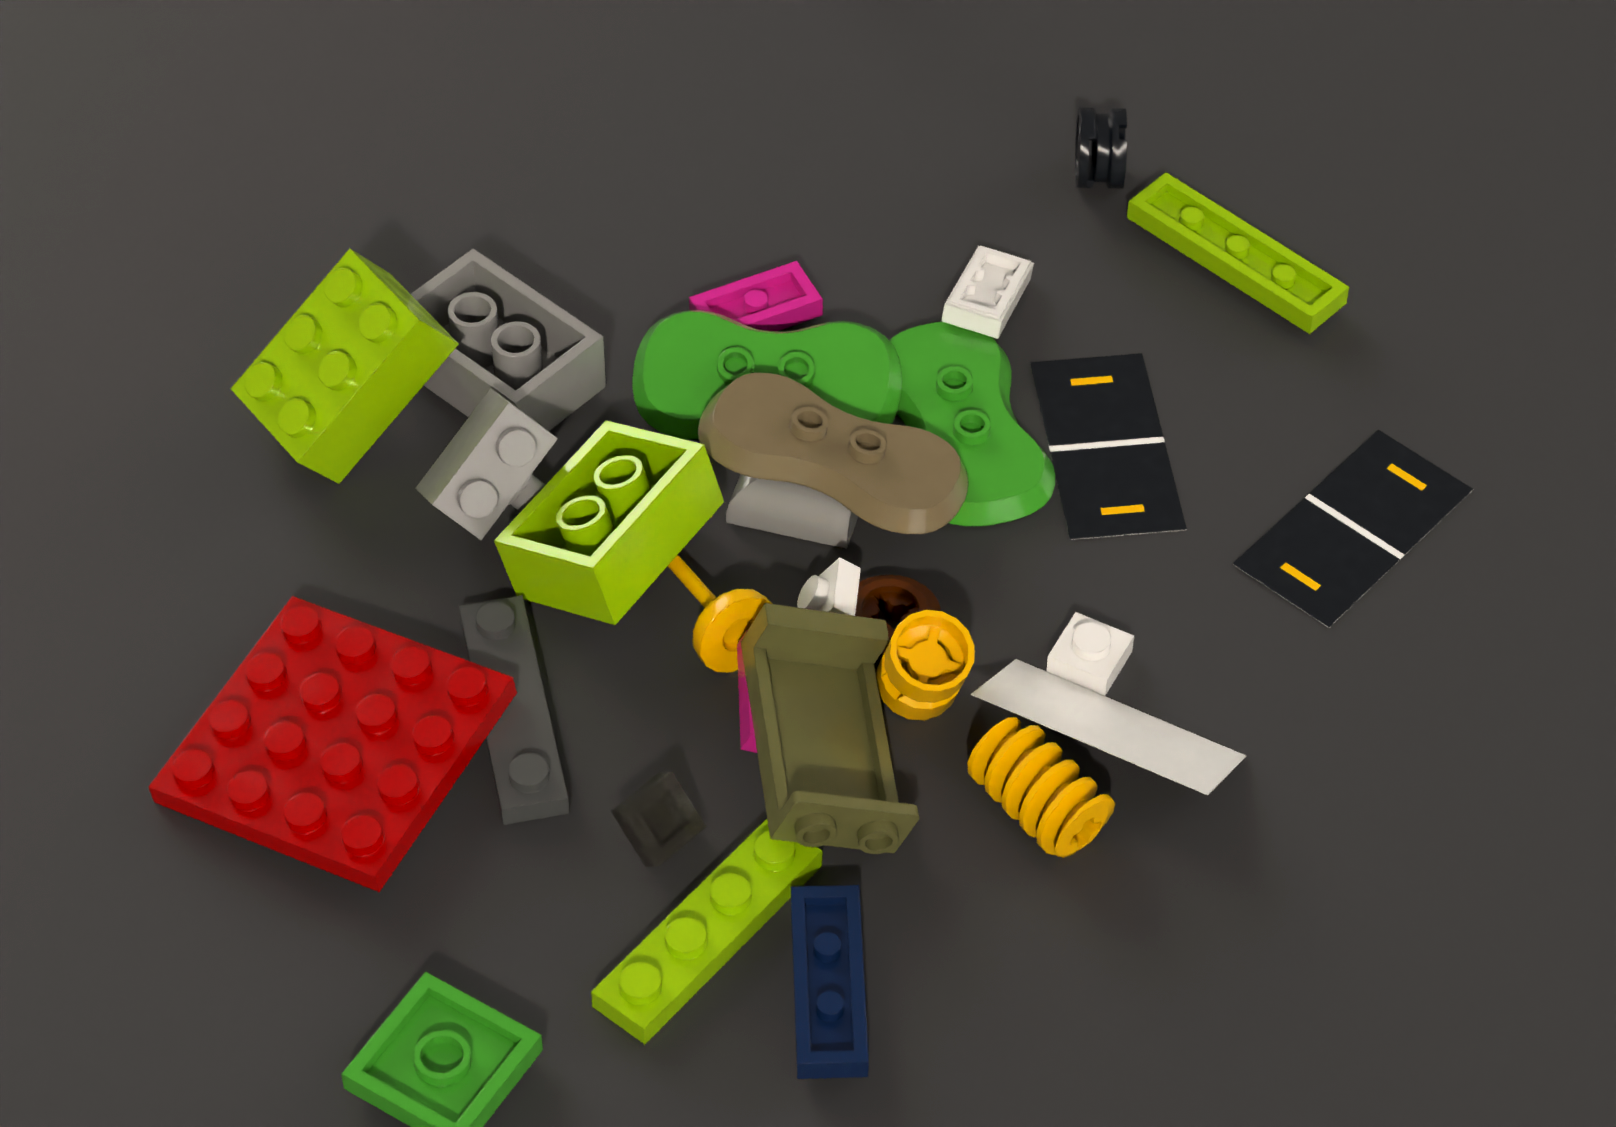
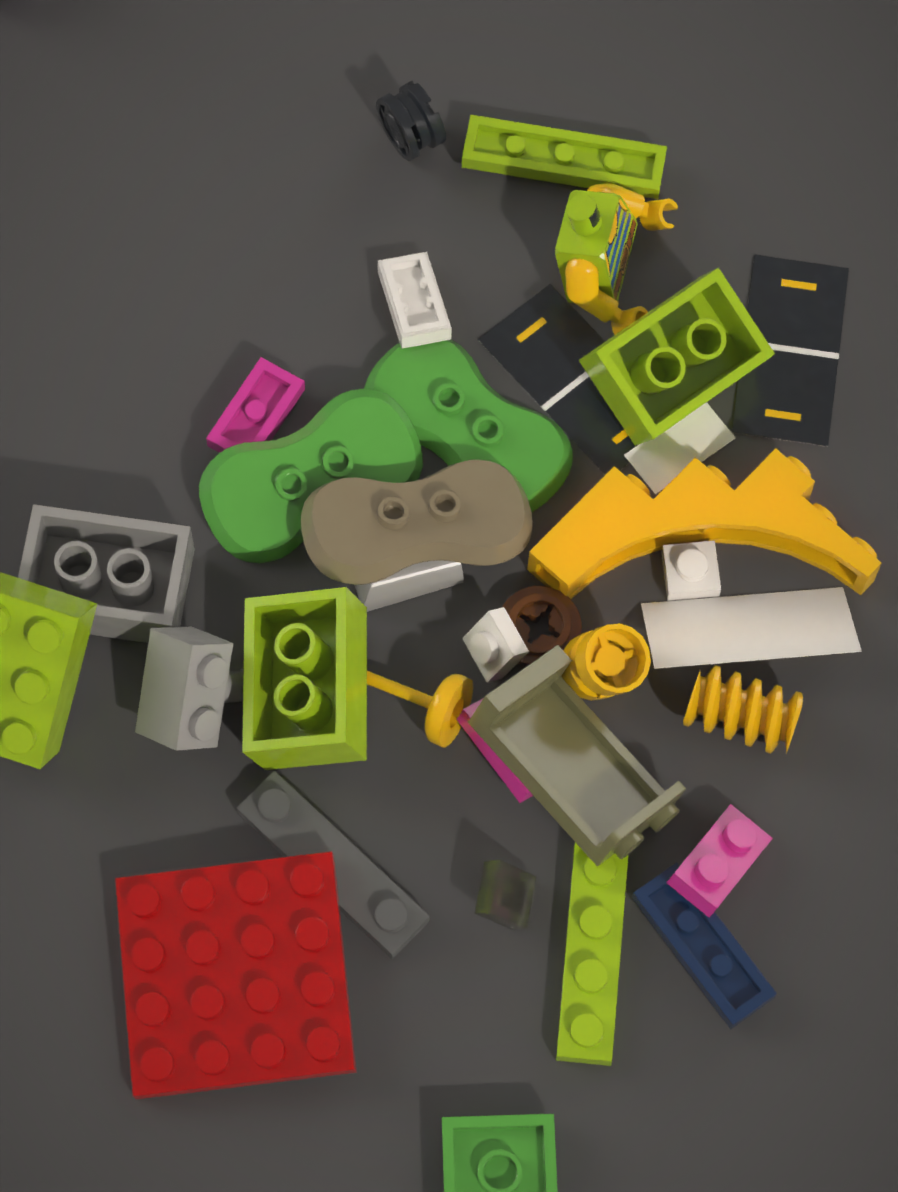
camera: 35 degrees left, 20 degrees up
(906, 909) = (719, 860): none -> dark pink plate
(1166, 548) = (669, 453): none -> white sticker
(1207, 325) = (597, 247): none -> torso
(1207, 632) = (765, 511): none -> yellow arch
(1212, 447) = (677, 357): none -> lime brick

